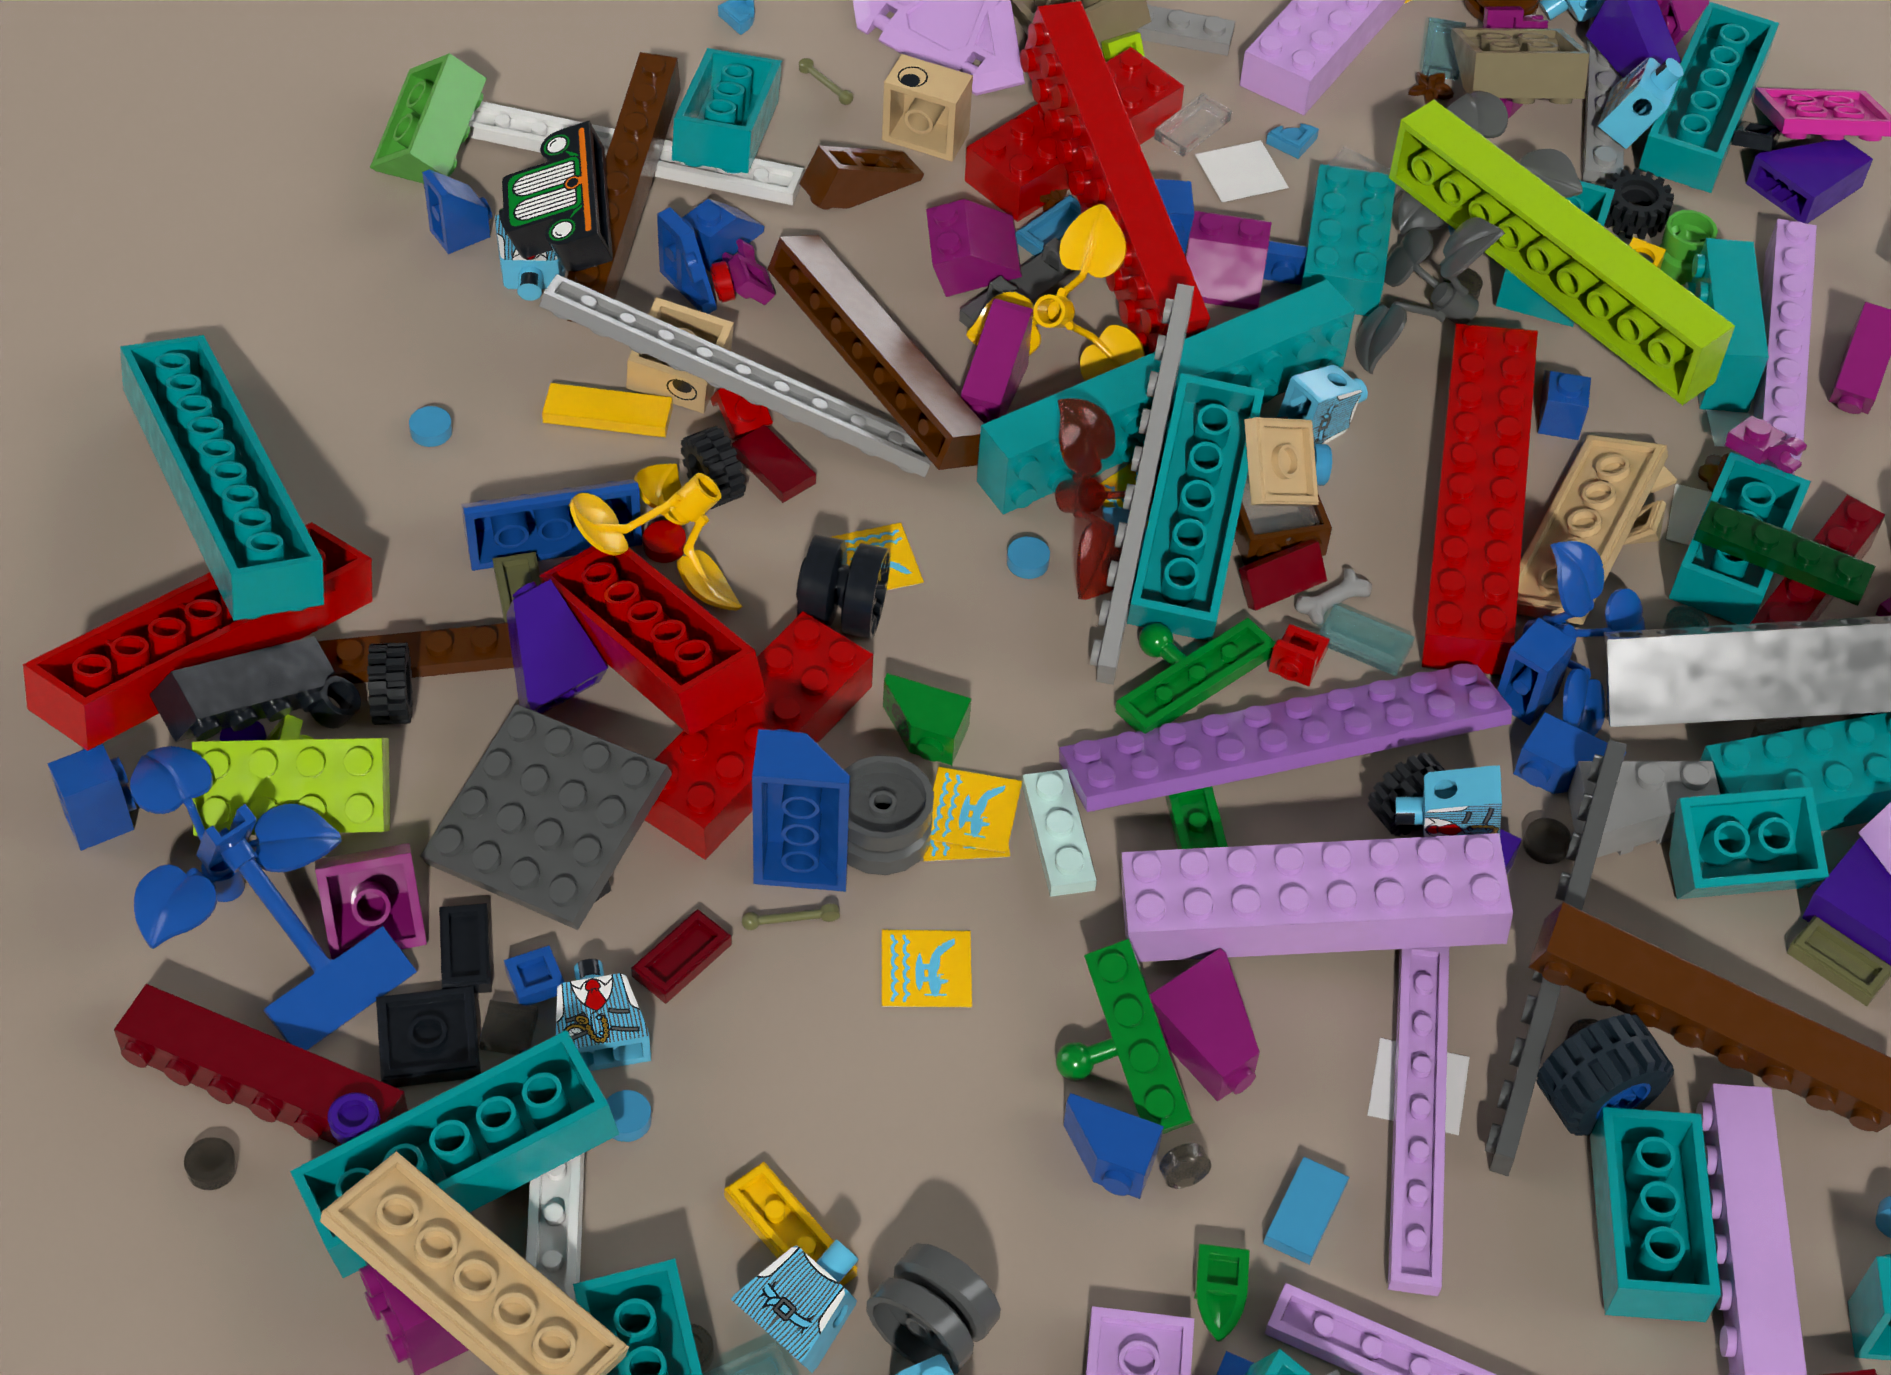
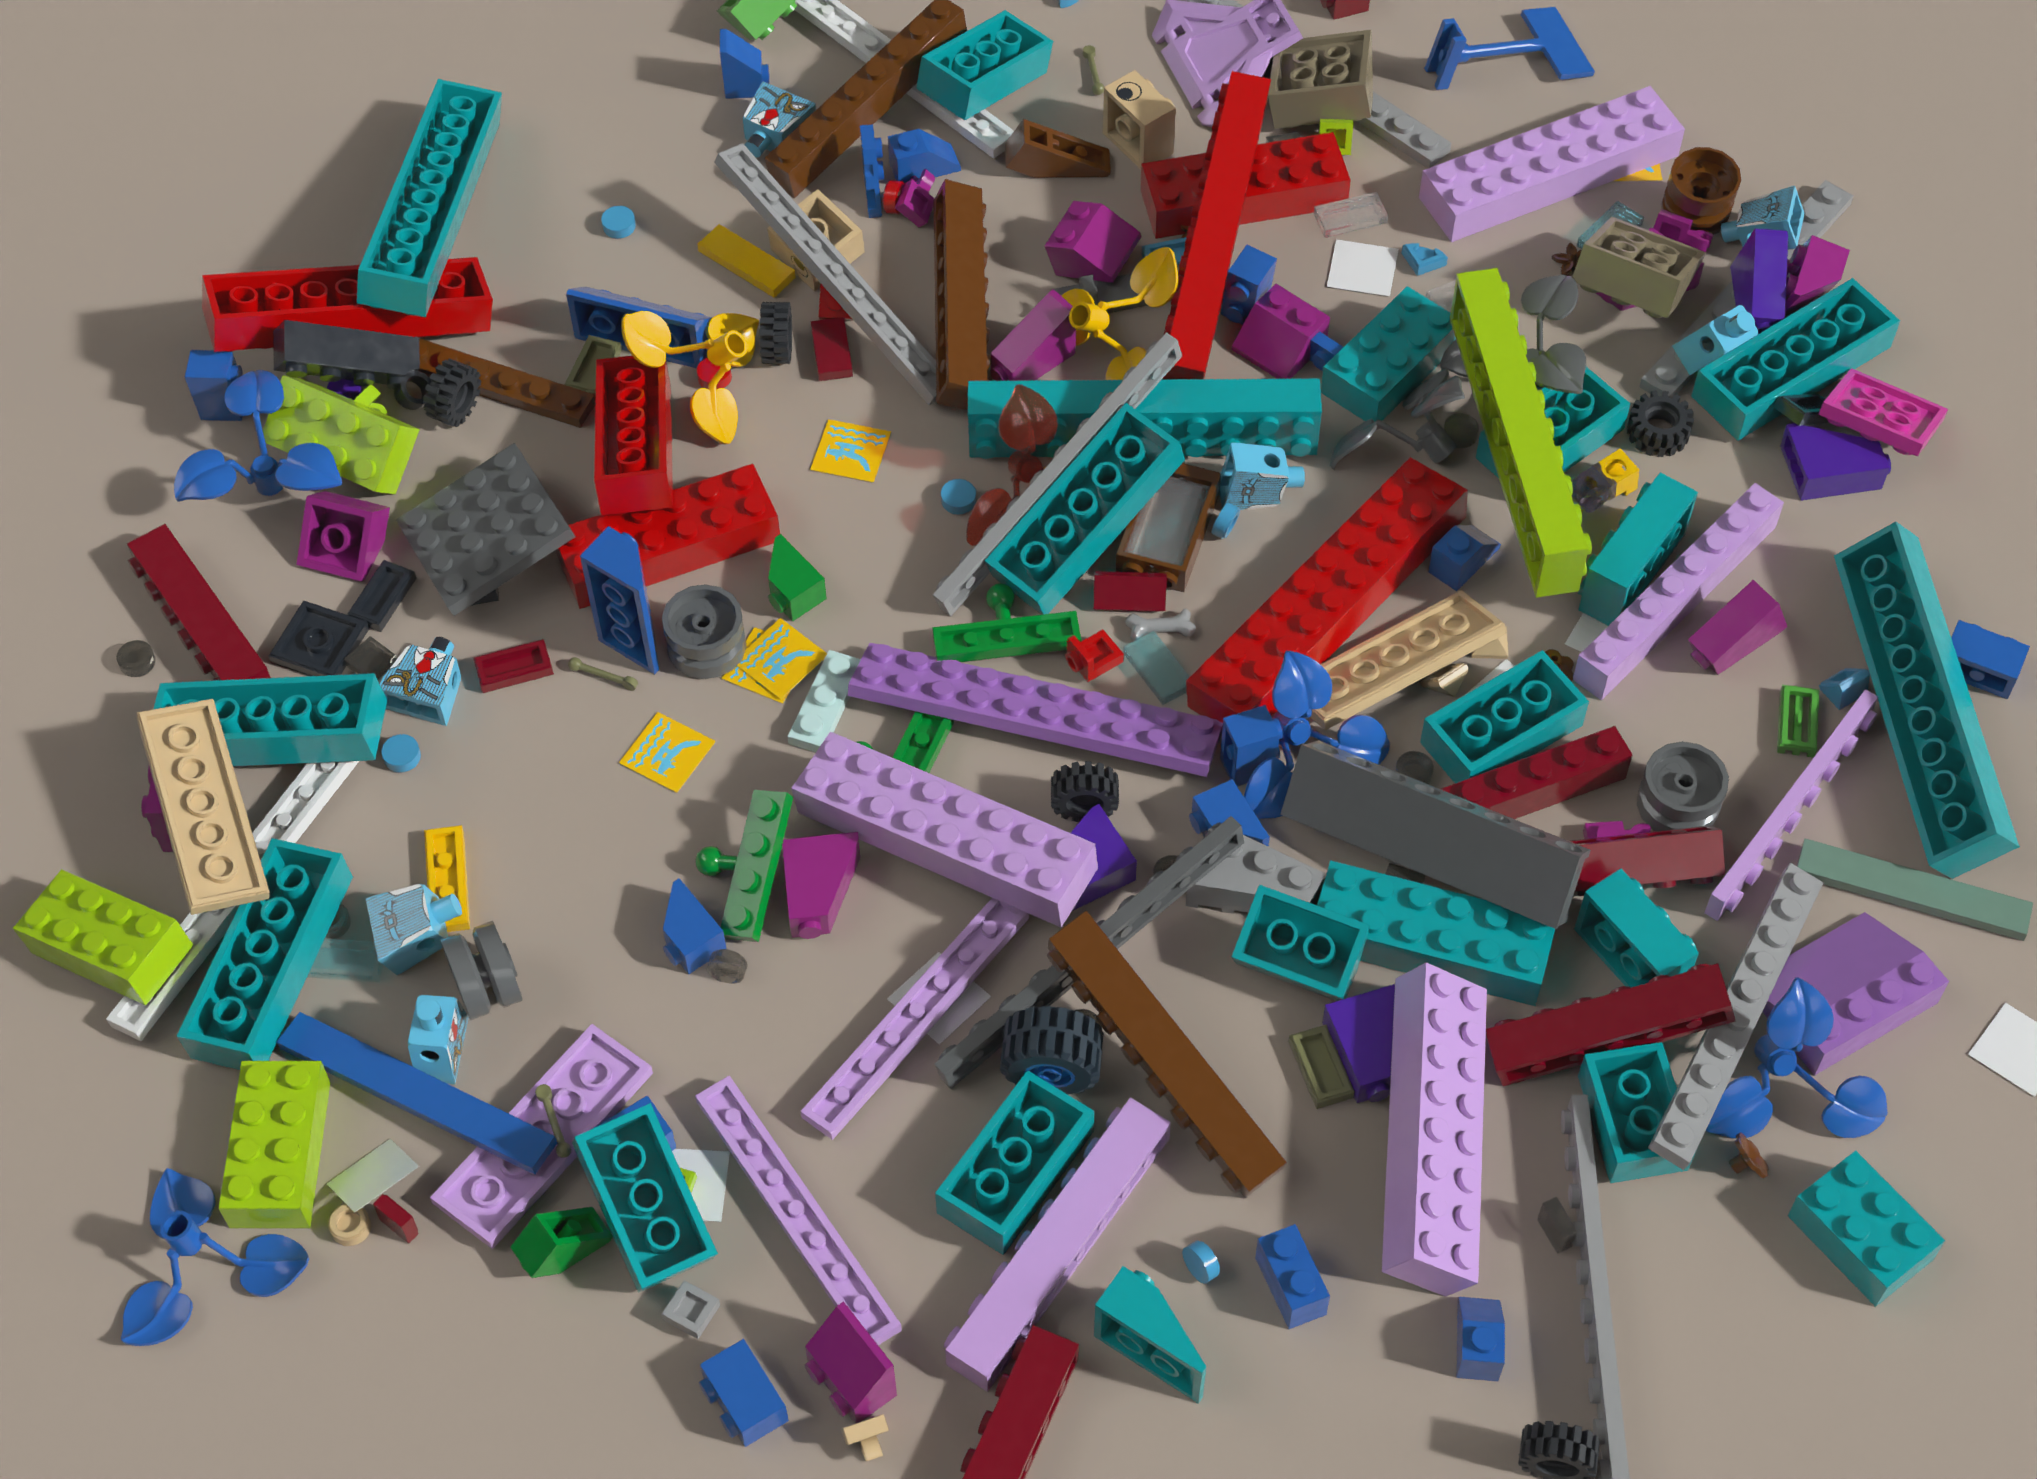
camera: 35 degrees right, 5 degrees up
(338, 986) = (285, 582): blue piece -> none
(352, 1116) = (222, 666): dark purple tile -> none
(534, 975) = (407, 631): blue plate -> none
(549, 649) = (567, 415): dark purple slope -> none
(562, 201) = (800, 90): brick -> none
(830, 583) = (797, 458): black wheel -> none
(1221, 1287) = (687, 1056): green plate -> none
(1281, 462) = (1165, 503): tan tile -> none
(1306, 1210) = (789, 1038): dark azure tile -> none
(1455, 803) = (1091, 813): medium azure torso -> none
(1683, 239) = (1668, 459): bright green wheel -> none
(1763, 442) = (1571, 652): magenta plate -> none
(1784, 553) = (1512, 746): dark green plate -> none

